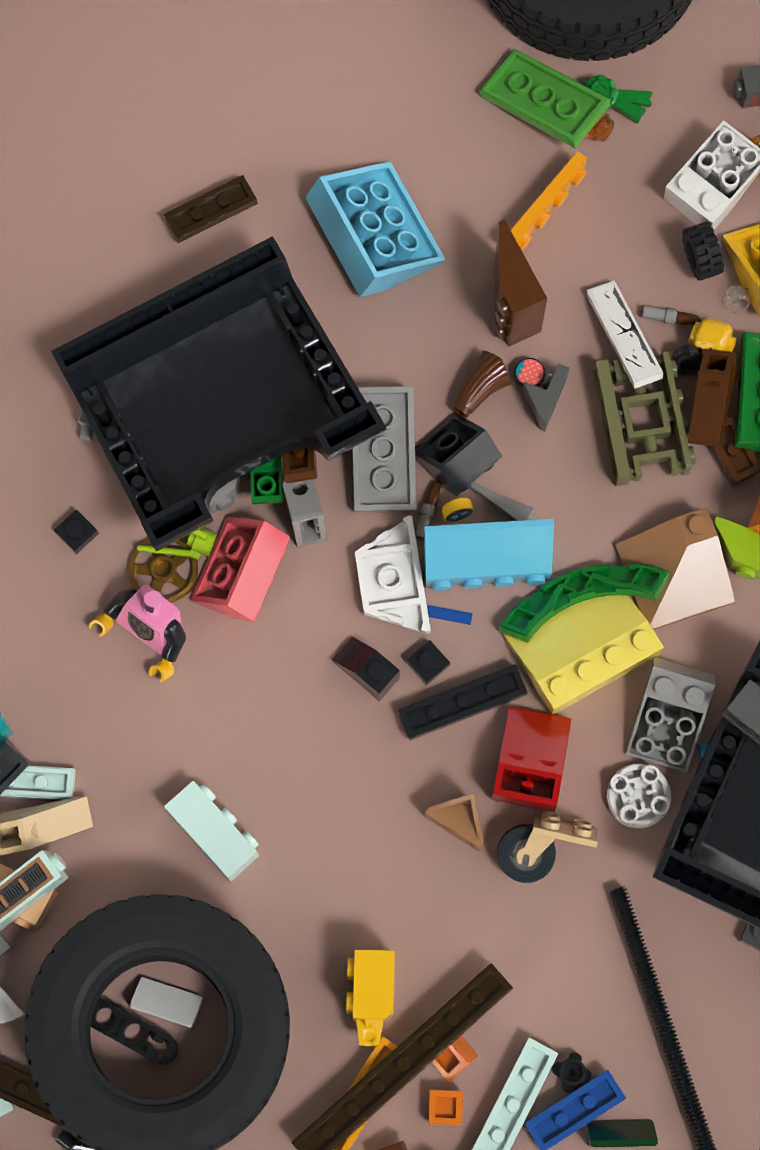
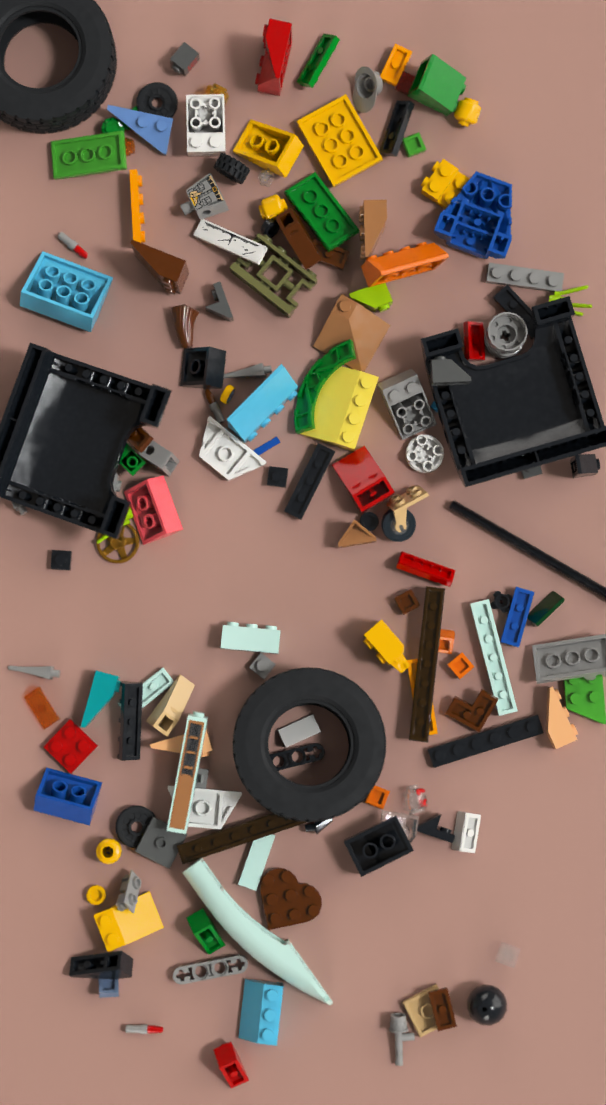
camera: 45 degrees left, 10 degrees up
(150, 620) = (135, 570): torso -> none
(196, 878) = (262, 665): none -> light grey plate
(367, 667) = (252, 504): black slope -> none
(386, 463) = (183, 406): light grey hinge -> none
(432, 183) = (73, 245): none -> light grey piece
(449, 962) = (407, 602): none -> reddish brown plate
(493, 818) = (369, 521): none -> black tile
(511, 941) = (425, 569): none -> red plate
(529, 371) = (202, 298): coral tile -> none
(638, 259) = (204, 199): none -> light grey torso
(647, 127) = (151, 127): none -> medium blue wing
(670, 316) = (243, 212): light grey piece -> none
(677, 125) = (160, 91): none -> black wheel

